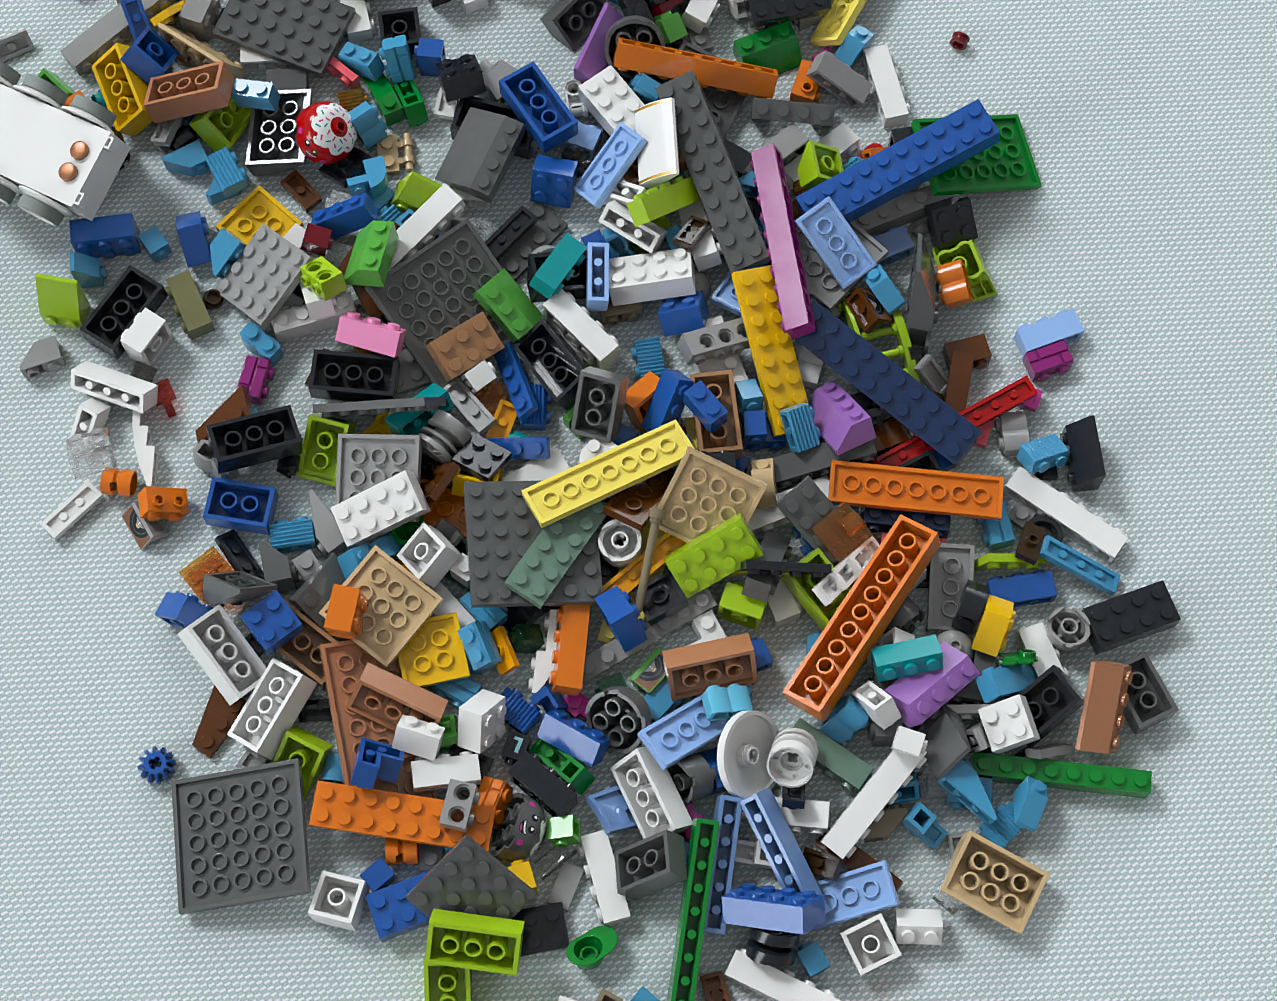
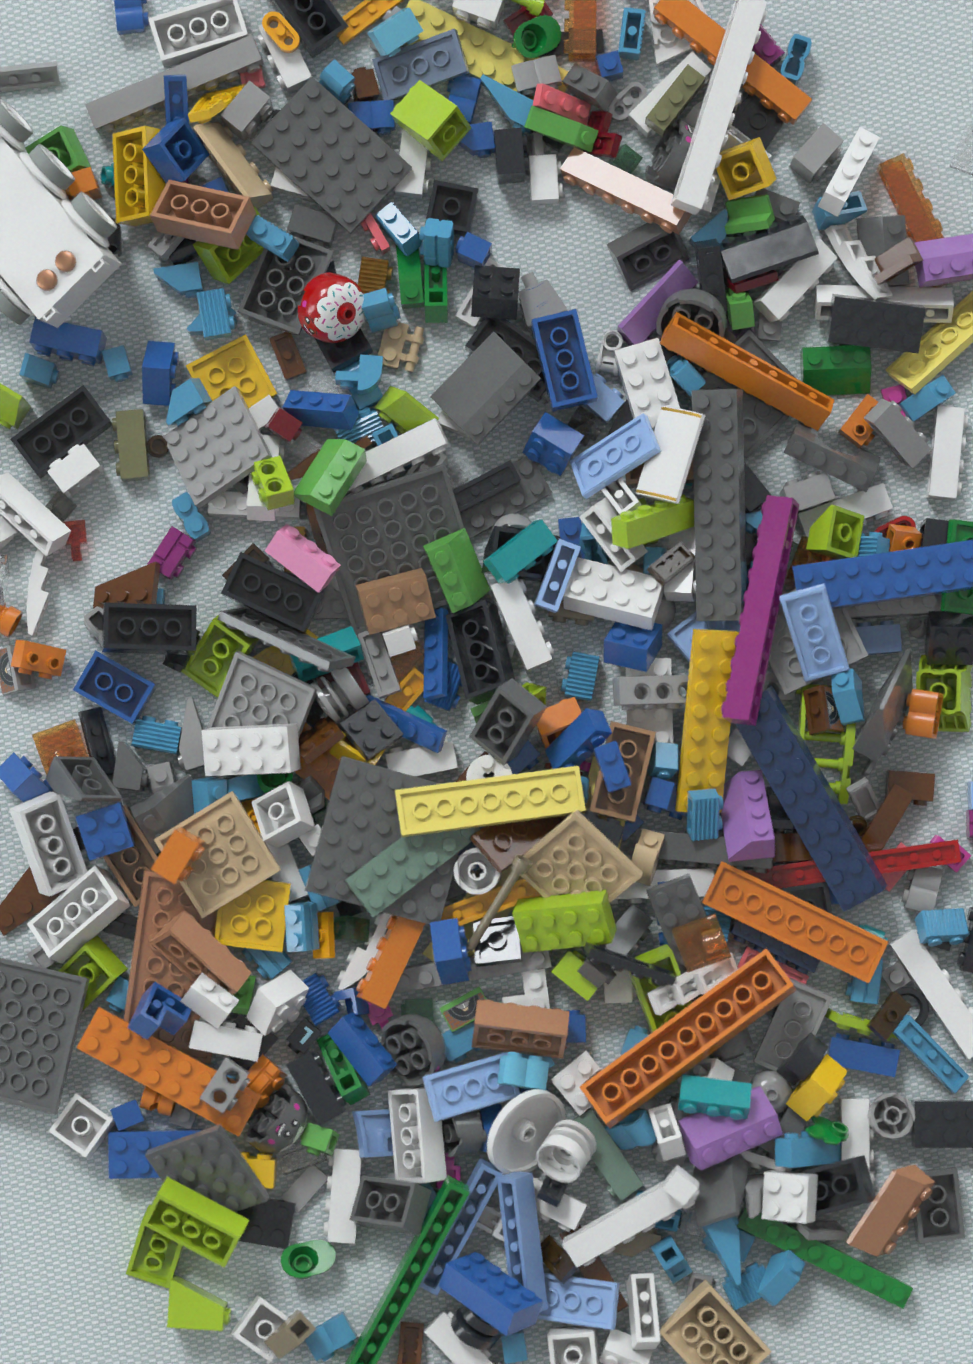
camera: 20 degrees right, 15 degrees up
(773, 702) = (572, 1077): none -> white brick
(918, 880) = (643, 1311): none -> white brick

